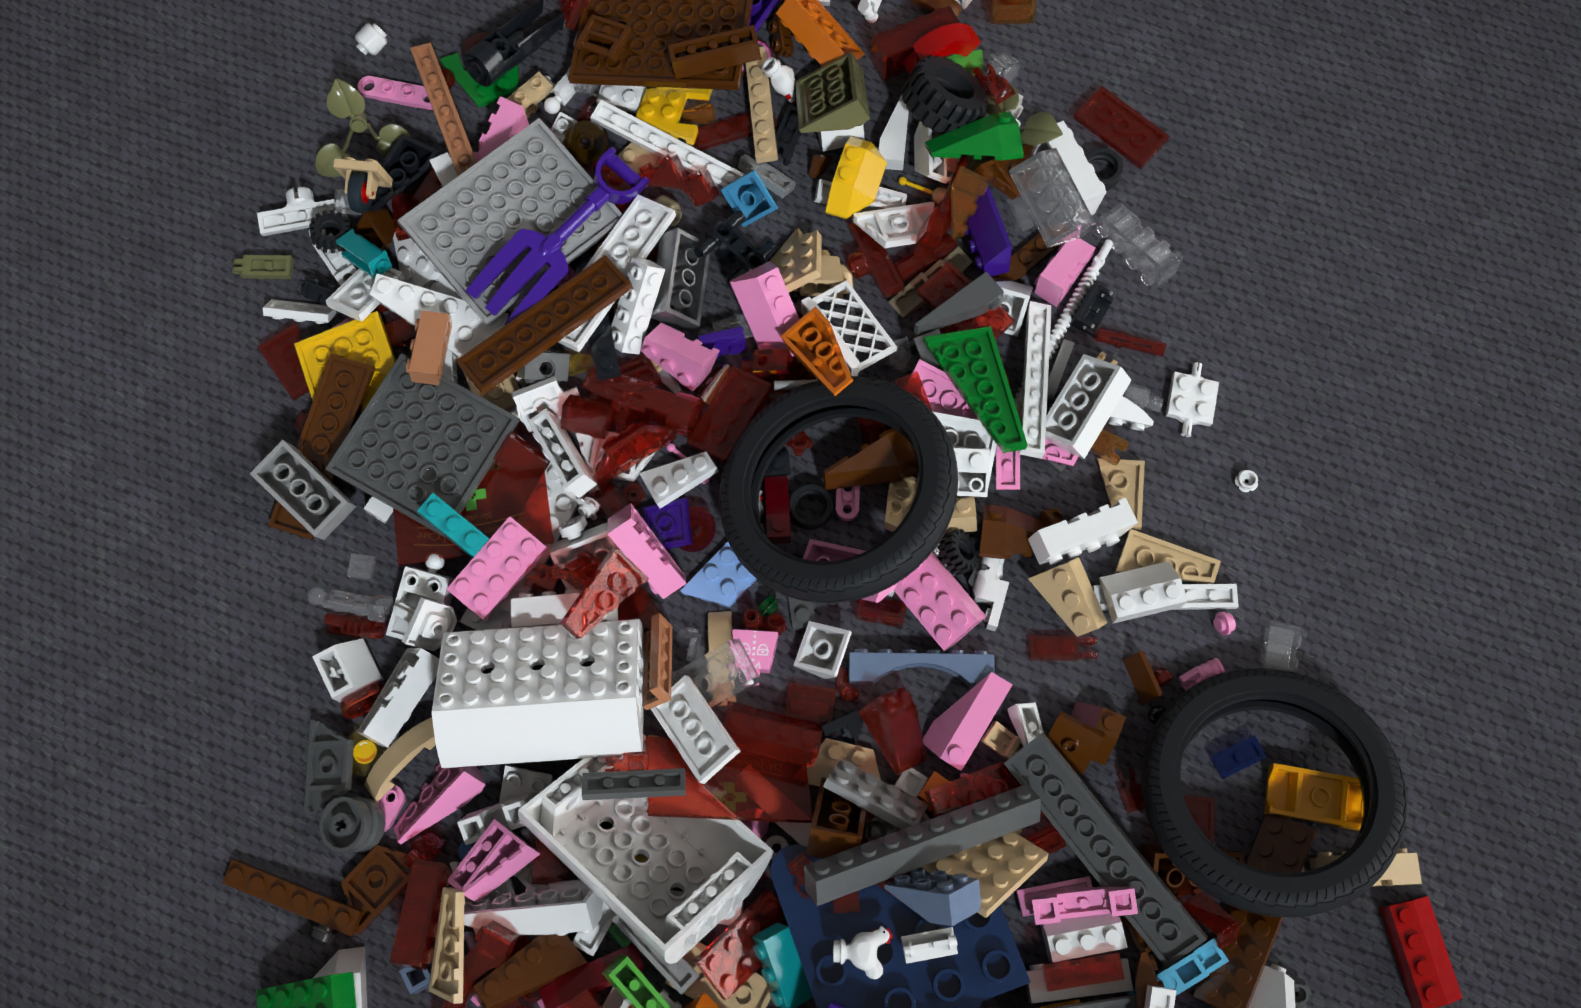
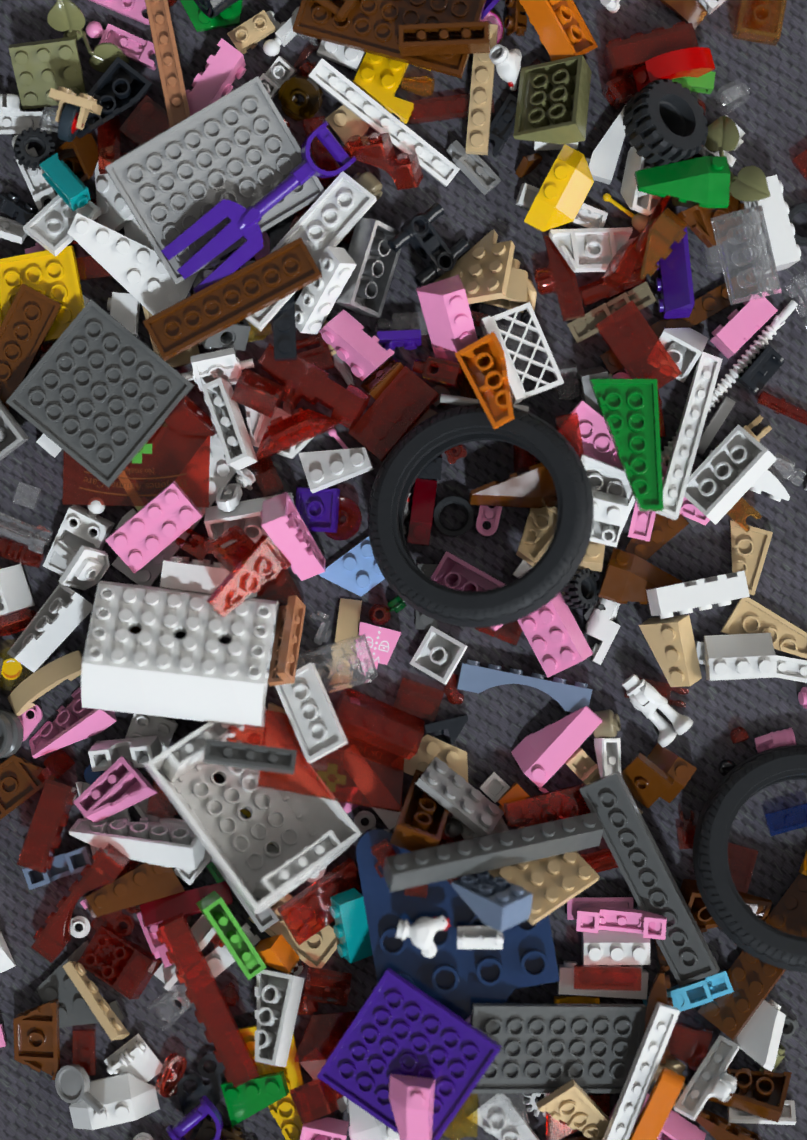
camera: 10 degrees right, 15 degrees up
(318, 155) = (46, 66): none -> olive plate
(419, 129) = (132, 46): none -> bright pink plate
(429, 347) = (118, 301): nougat brick -> none
(444, 168) = (156, 109): white sticker -> none
(448, 956) = (66, 869): tan wing -> none
(452, 525) = (118, 482): teal brick -> none
(633, 488) = (284, 472): clear red plate -> none
(749, 196) = (451, 191): dark azure slope -> none
(775, 623) = (400, 617): clear red plate -> none
(891, 83) = (619, 90): none -> clear red slope
(896, 729) = (490, 740): clear red slope -> none
(968, 303) = (645, 349): dark grey slope -> none
(995, 87) = (718, 120): clear red hinge -> none
(1019, 692) = (609, 725): none -> dark tan head
(1033, 476) = (662, 532): none -> reddish brown wing
(1051, 516) = (674, 571): reddish brown tile -> none
(1055, 655) = (647, 700): none -> white piece
(1142, 677) = (721, 733): reddish brown slope -> none
(1213, 918) = (729, 955): clear red hinge -> none

